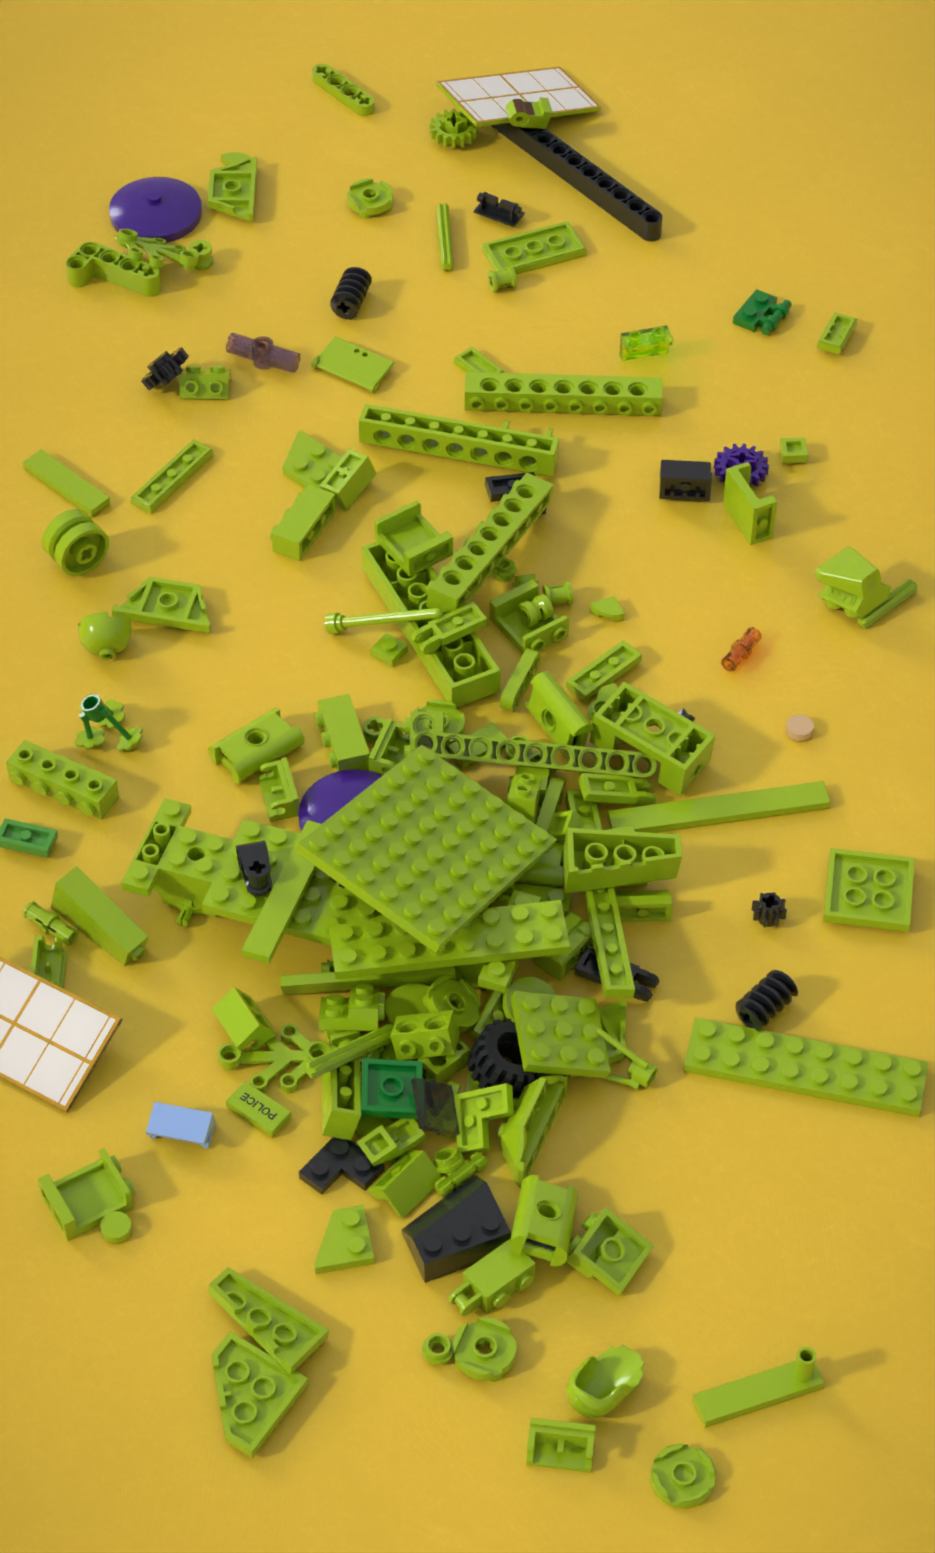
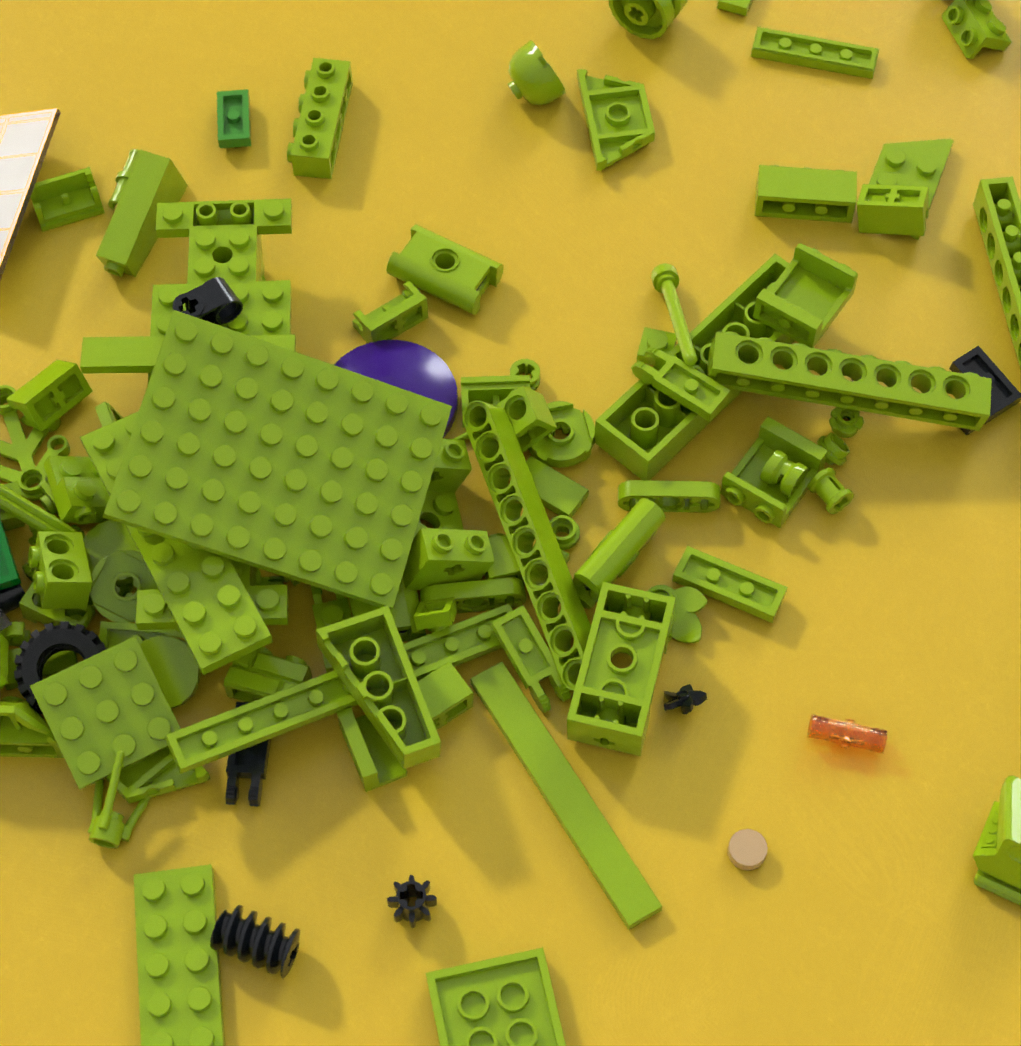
camera: 70 degrees right, 10 degrees up
(109, 715) = (404, 101): plant -> none
(342, 734) = (498, 342): lime brick -> none
(608, 608) = (841, 556): lime tile -> none

